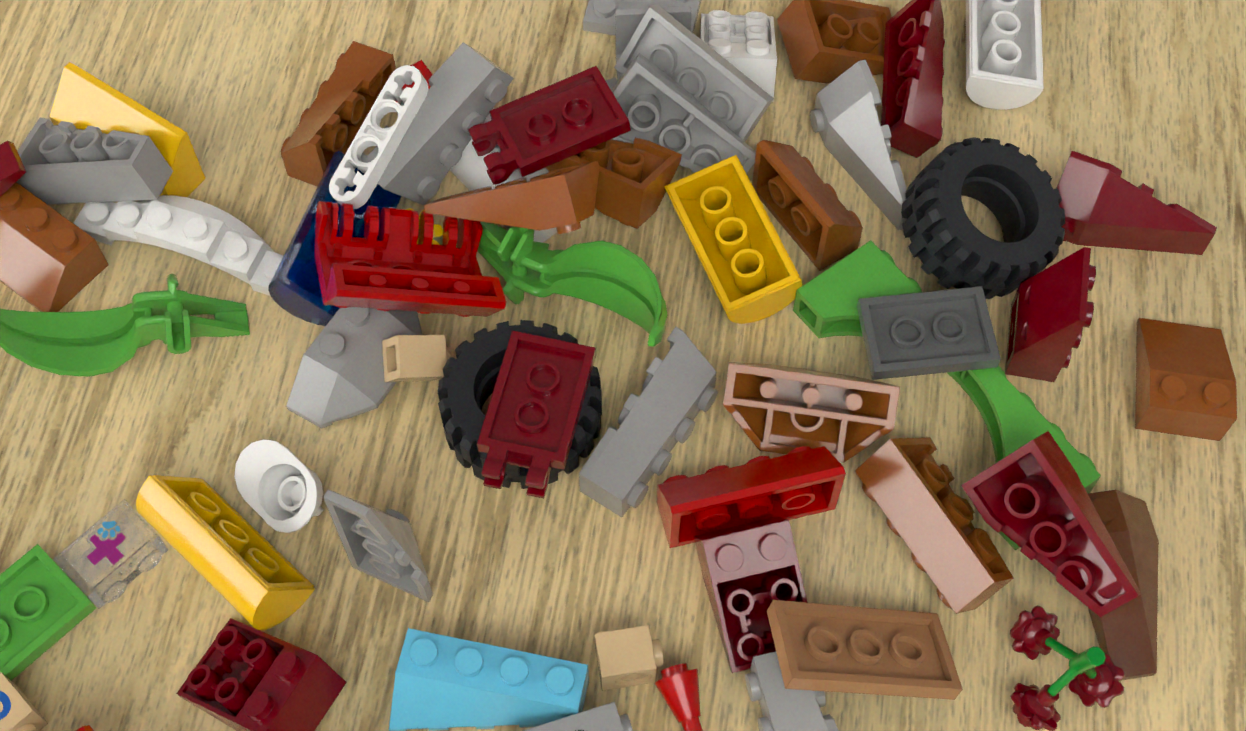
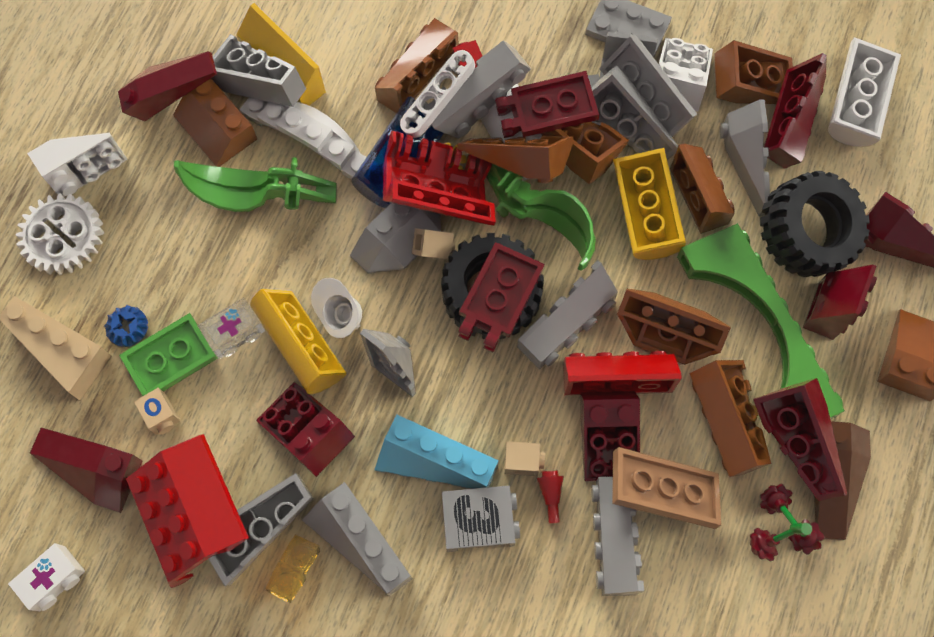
camera: 15 degrees right, 10 degrees up
(928, 333) = (758, 295): dark grey plate -> none

